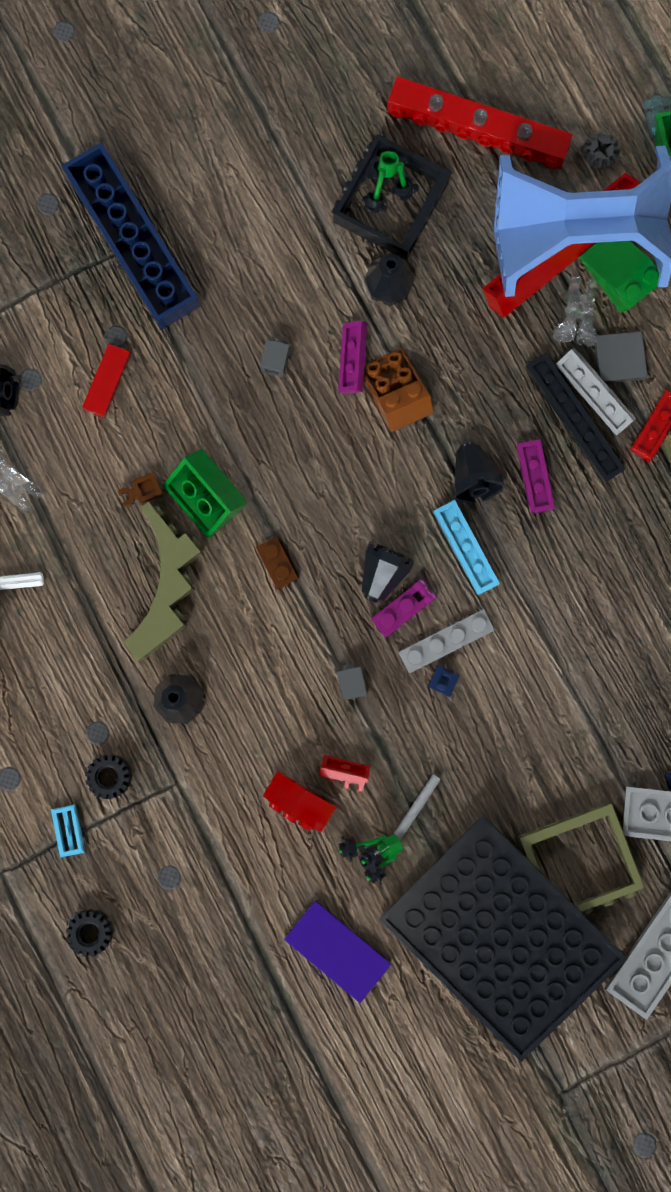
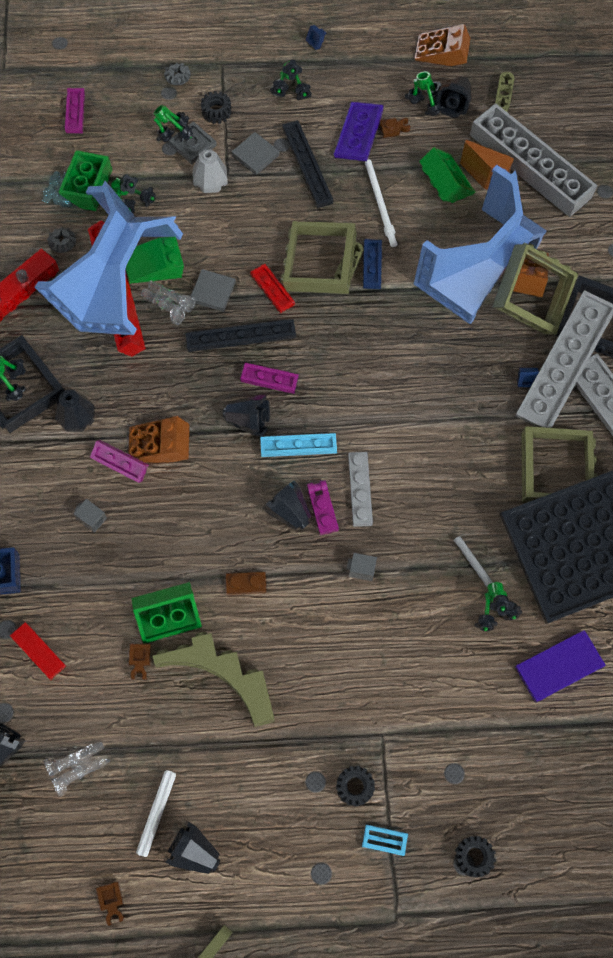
camera: 70 degrees left, 15 degrees down
(188, 703) = (316, 711): black cone -> none
(298, 803) = (437, 641): red brick -> none
(345, 770) = (426, 600): red plate -> none
(443, 681) = (388, 503): dark blue tile -> none
(595, 391) = (229, 314): light grey plate -> none

